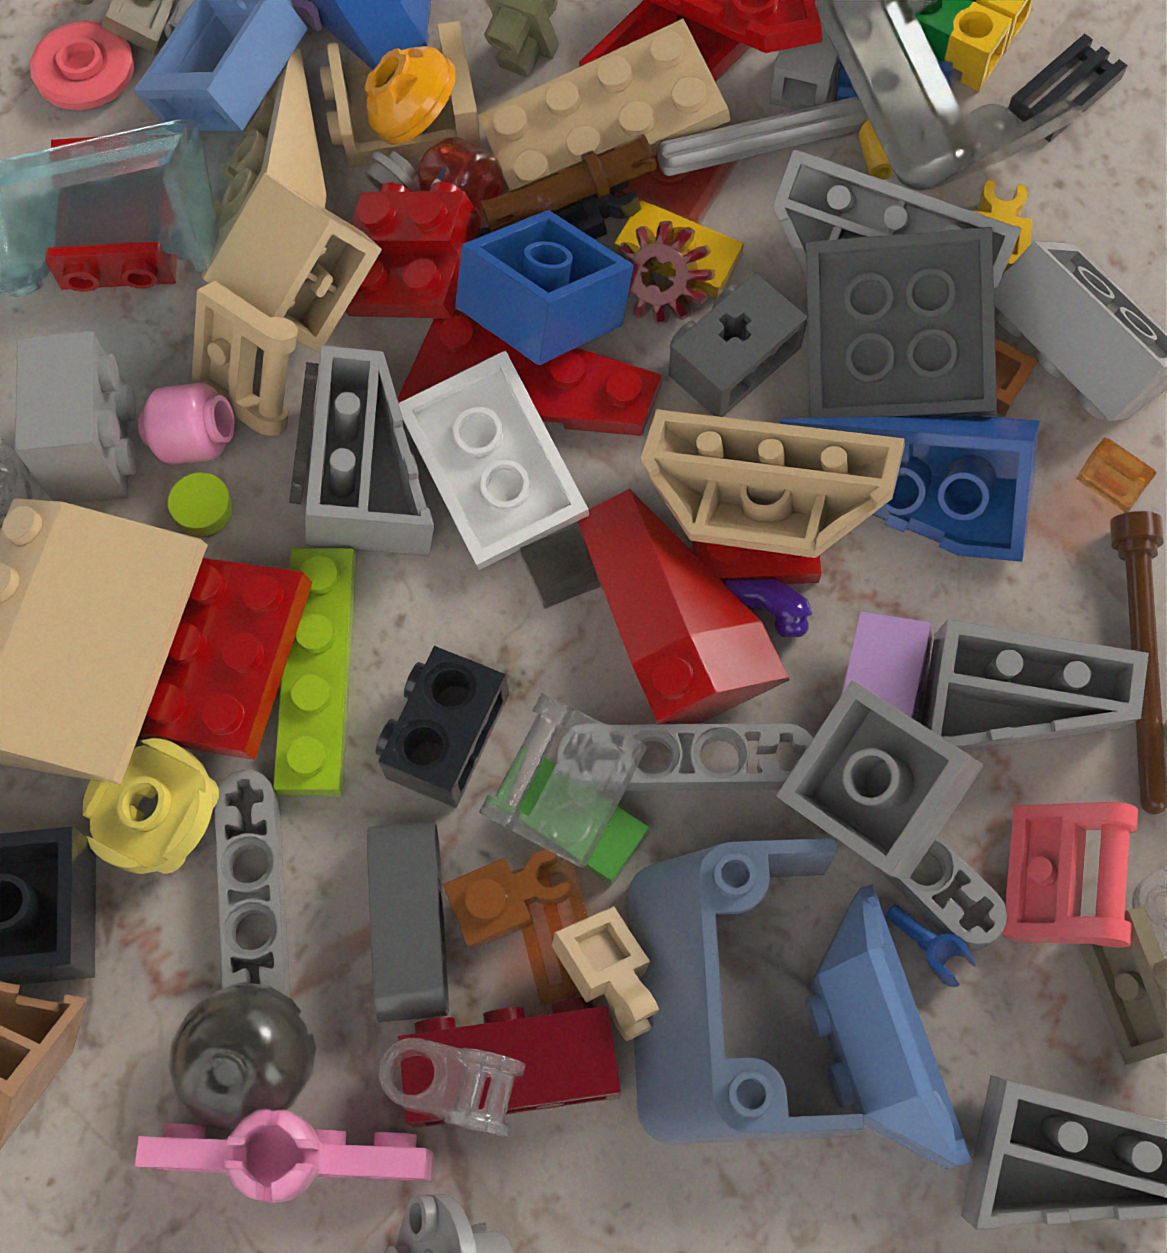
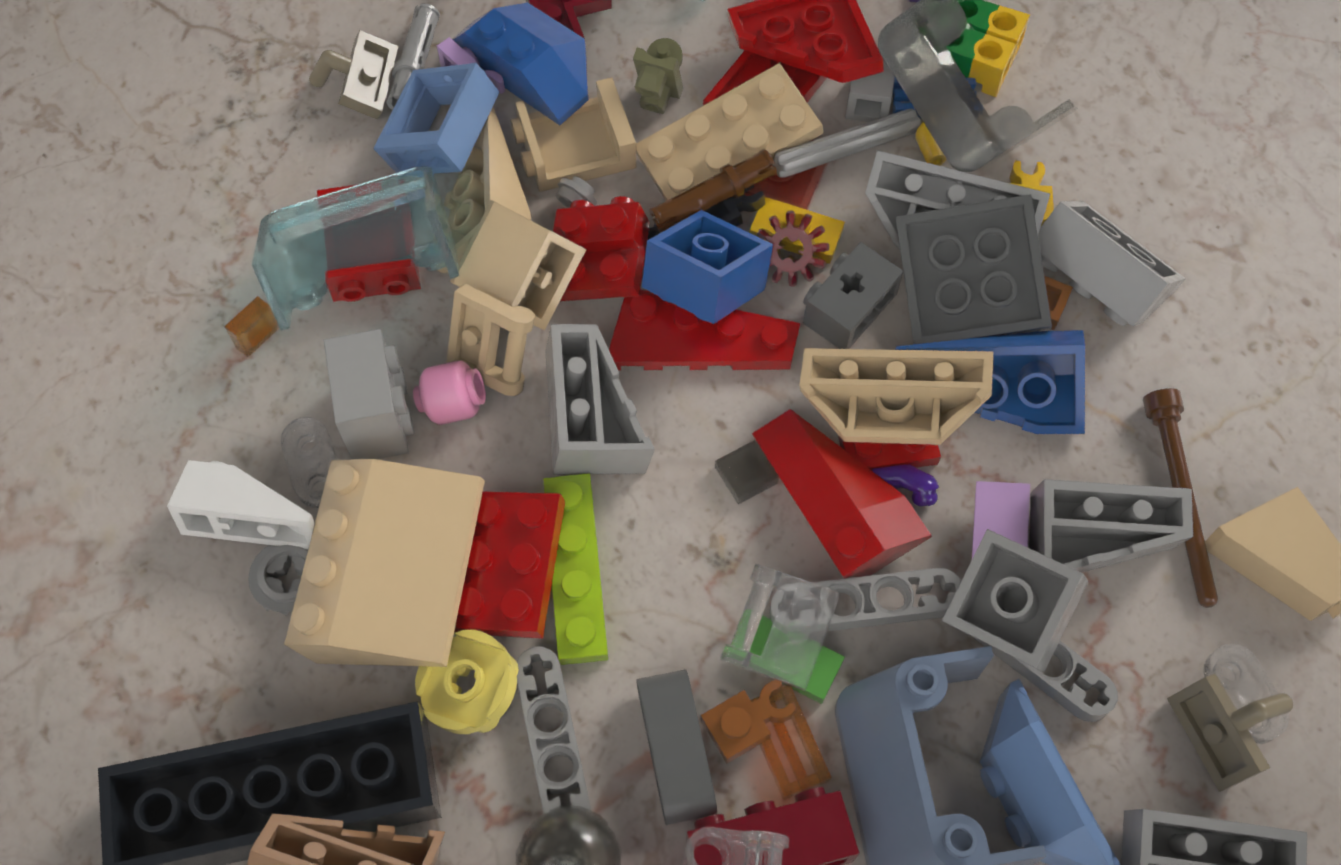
camera: 10 degrees left, 5 degrees down
(81, 66) = (325, 133): coral wheel -> none
(200, 504) = (467, 451): lime tile -> none
(303, 433) = (543, 391): clear smoke piece -> none
(408, 92) = (582, 133): light orange piece -> none
(457, 729) = (687, 599): black brick -> none
(463, 166) = (630, 182): clear red head -> none
(492, 460) = (687, 397): white plate -> none
(608, 961) = (835, 758): tan plate -> none
(937, 948) = (1069, 721): blue hand -> none
(1049, 870) = (1142, 656): coral plate -> none
(1092, 61) = (1074, 69): black tile -> none
(1116, 475) = (1142, 364): clear orange tile -> none

